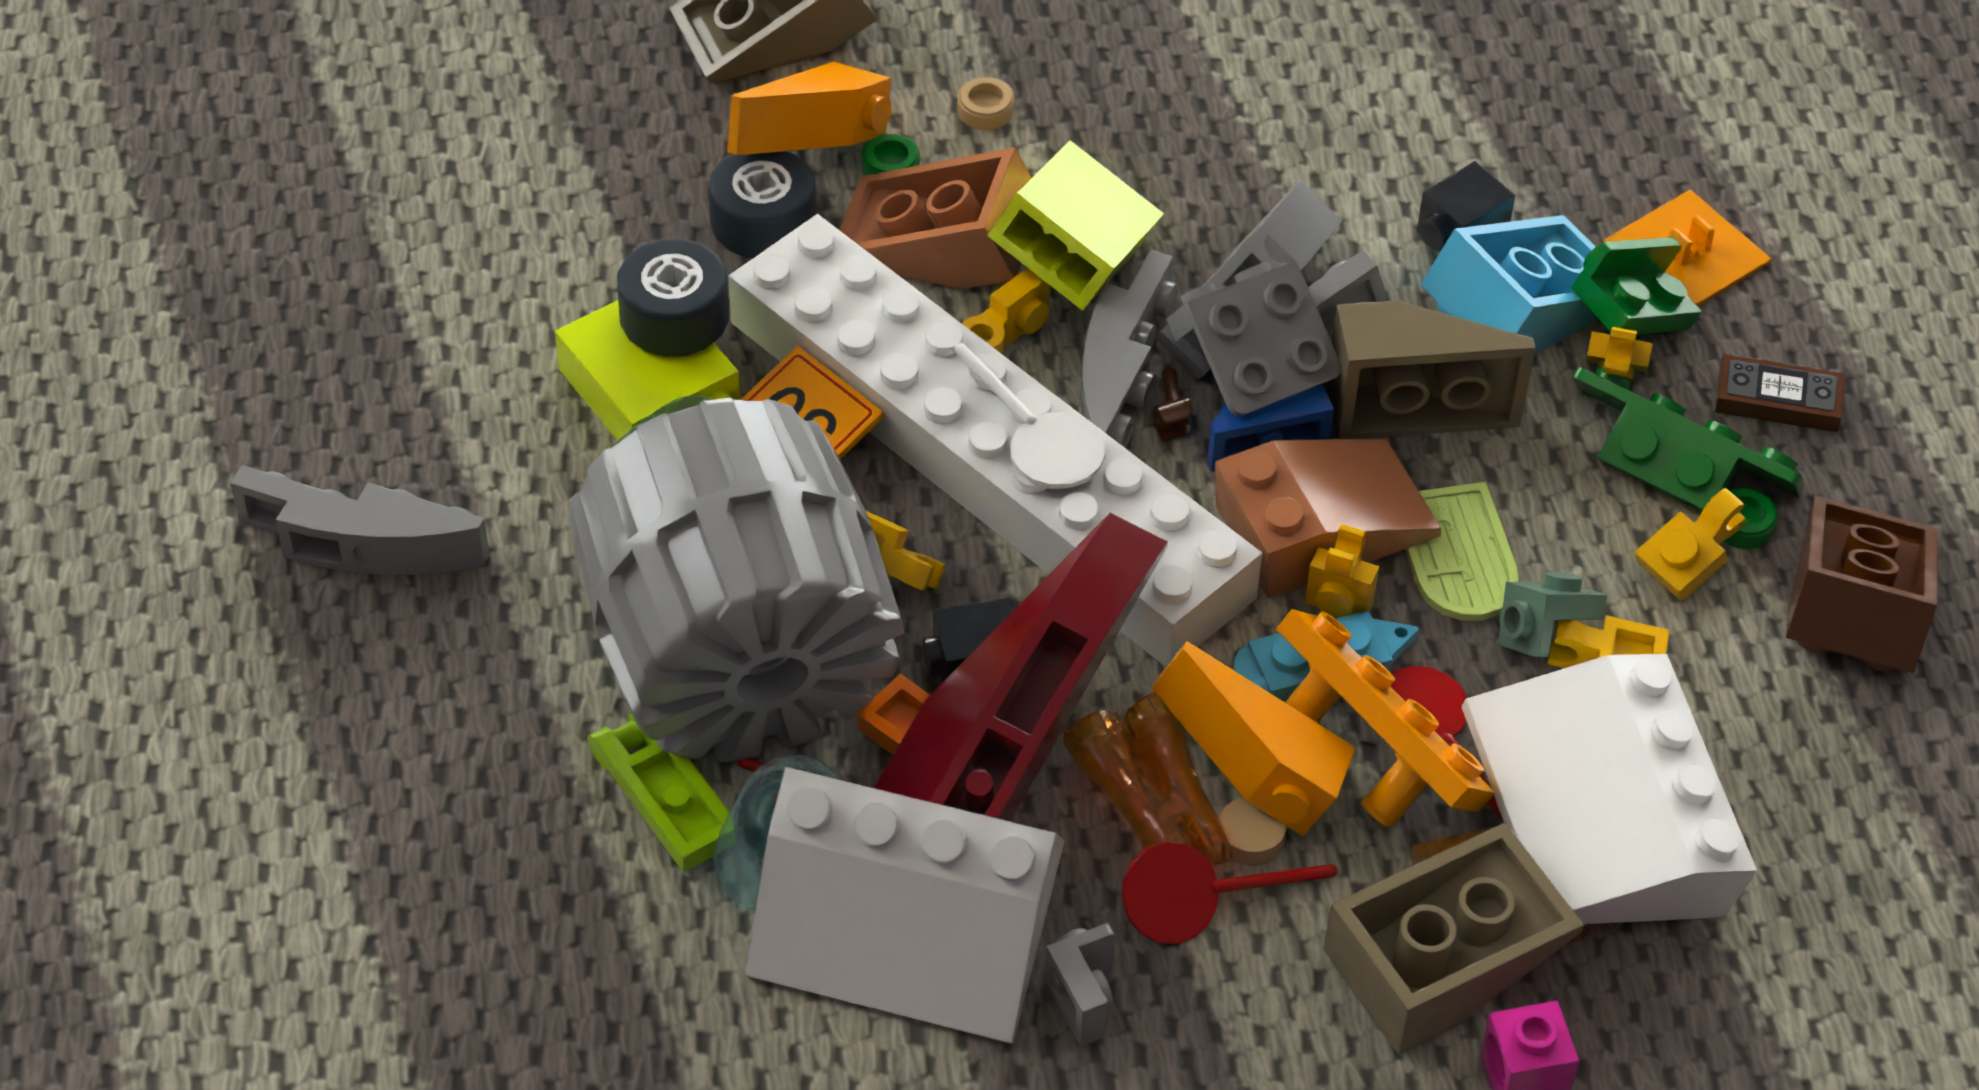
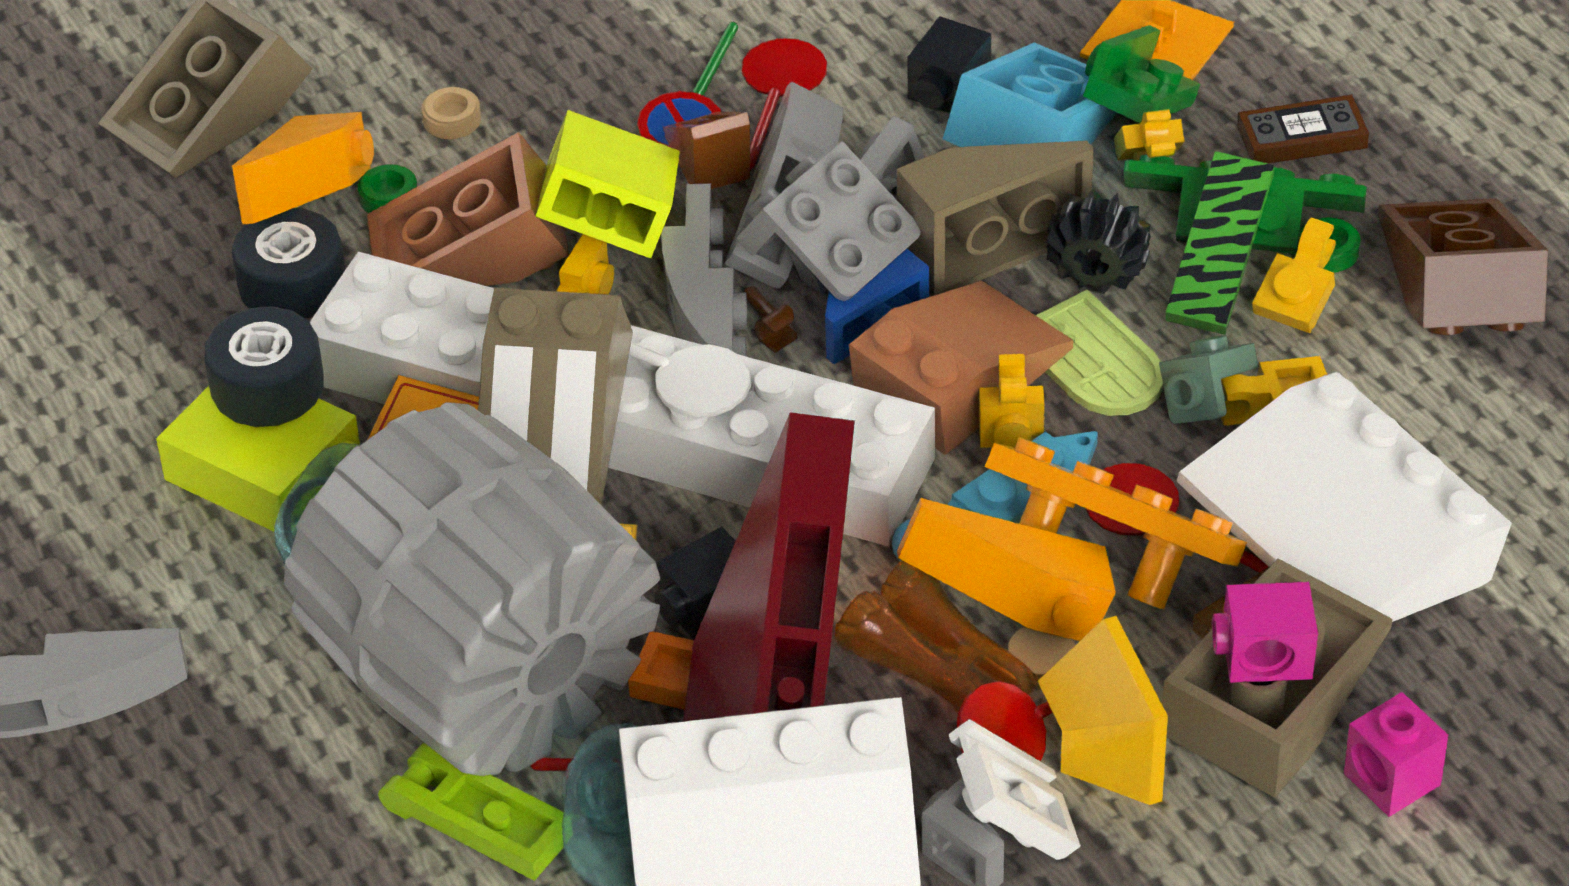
camera: 20 degrees left, 5 degrees down
(913, 410) = (558, 374): none -> dark tan slope
(1144, 956) = (1013, 791): none -> white plate
(1198, 183) = (682, 105): none -> piece
(1200, 220) = (713, 148): none -> dark orange slope
(1265, 914) = (1109, 715): none -> yellow slope
(1315, 157) = (771, 69): none -> red piece
(1444, 894) = (1267, 632): none -> dark pink brick
(1510, 439) = (1098, 241): none -> black gear
(1629, 481) = (1219, 243): none -> tile

